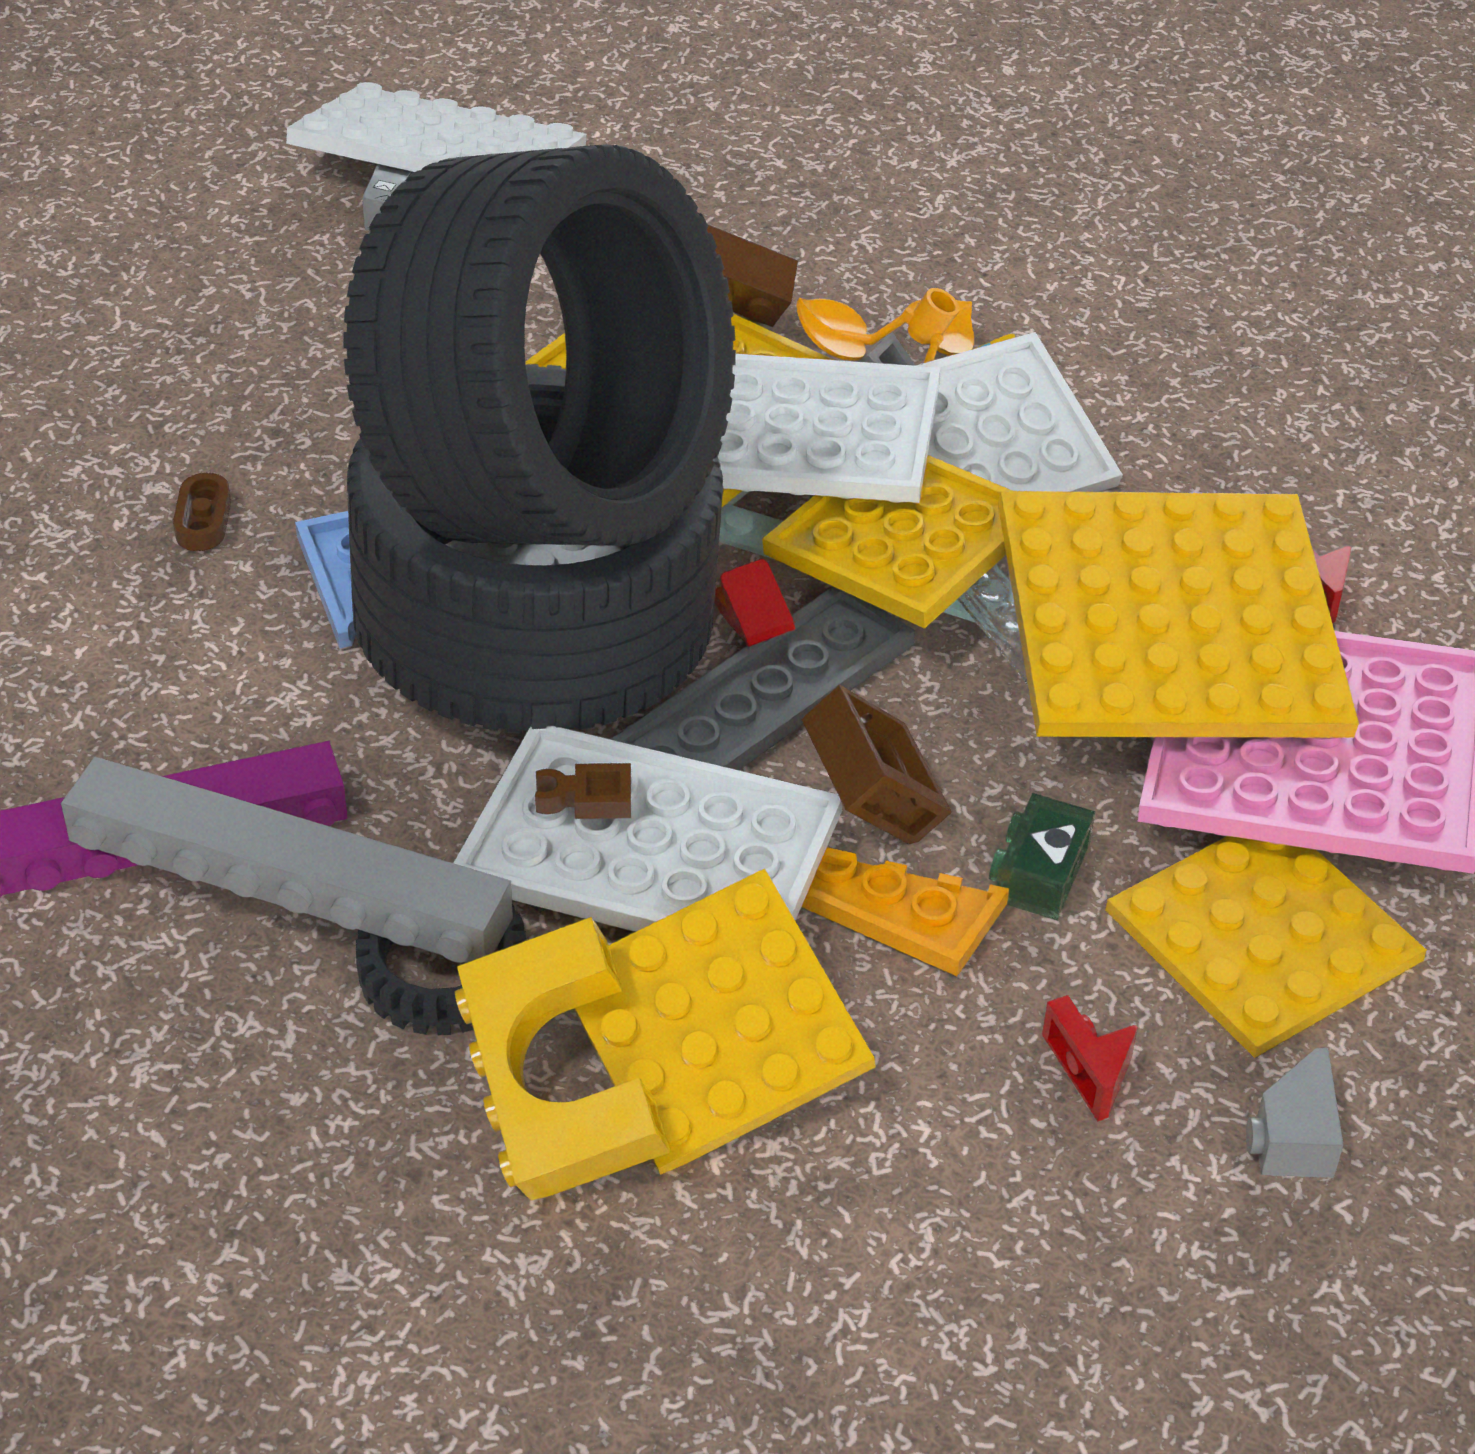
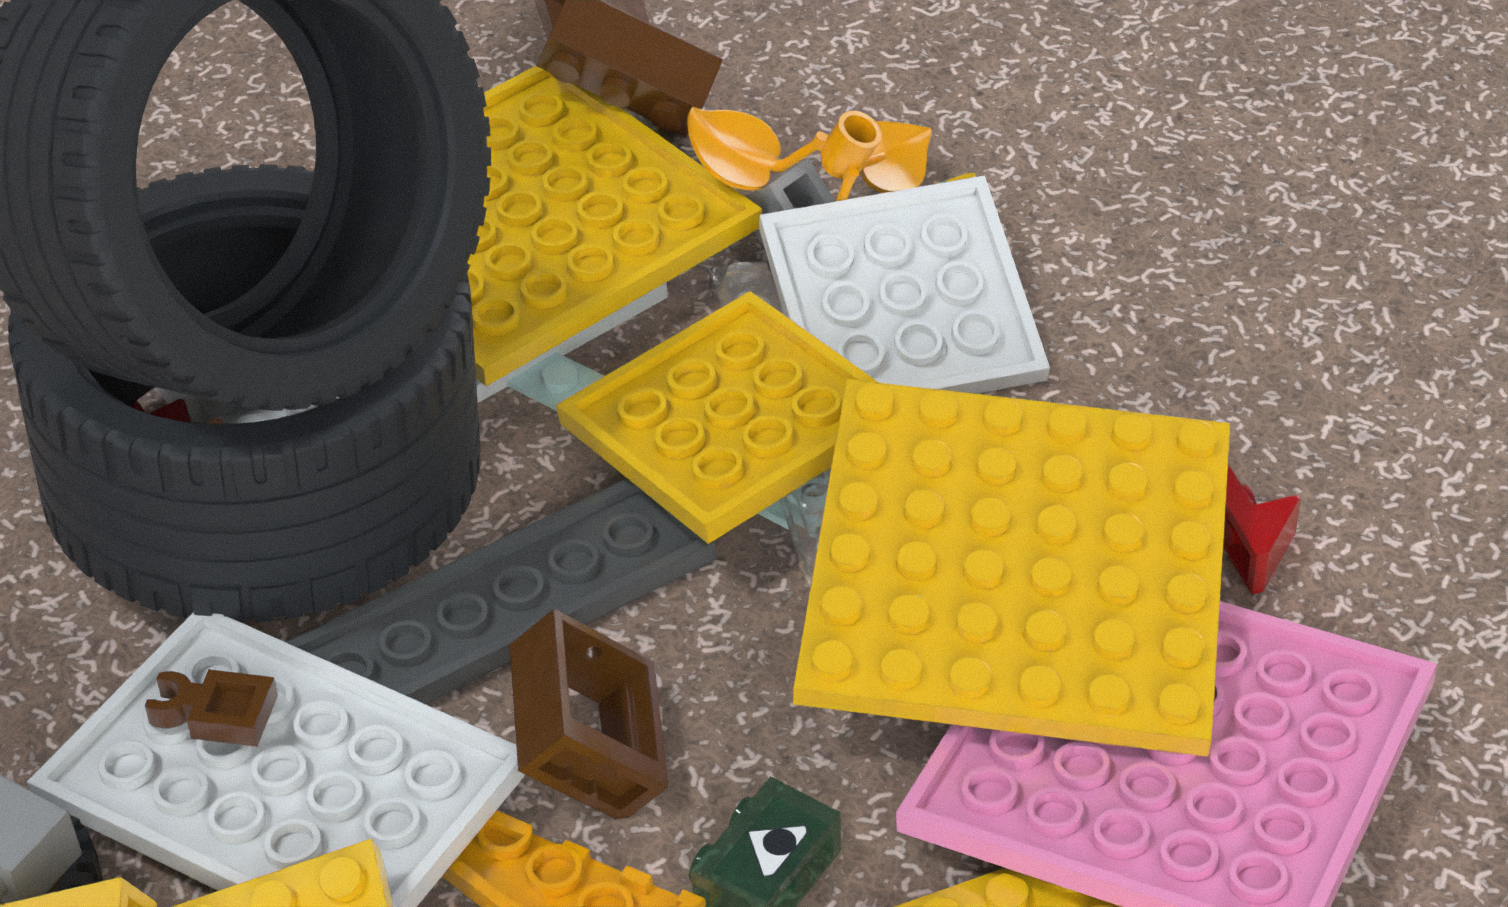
camera: 15 degrees right, 0 degrees up
(753, 603) = (525, 484): red slope -> none
(829, 427) = (642, 265): white plate -> none

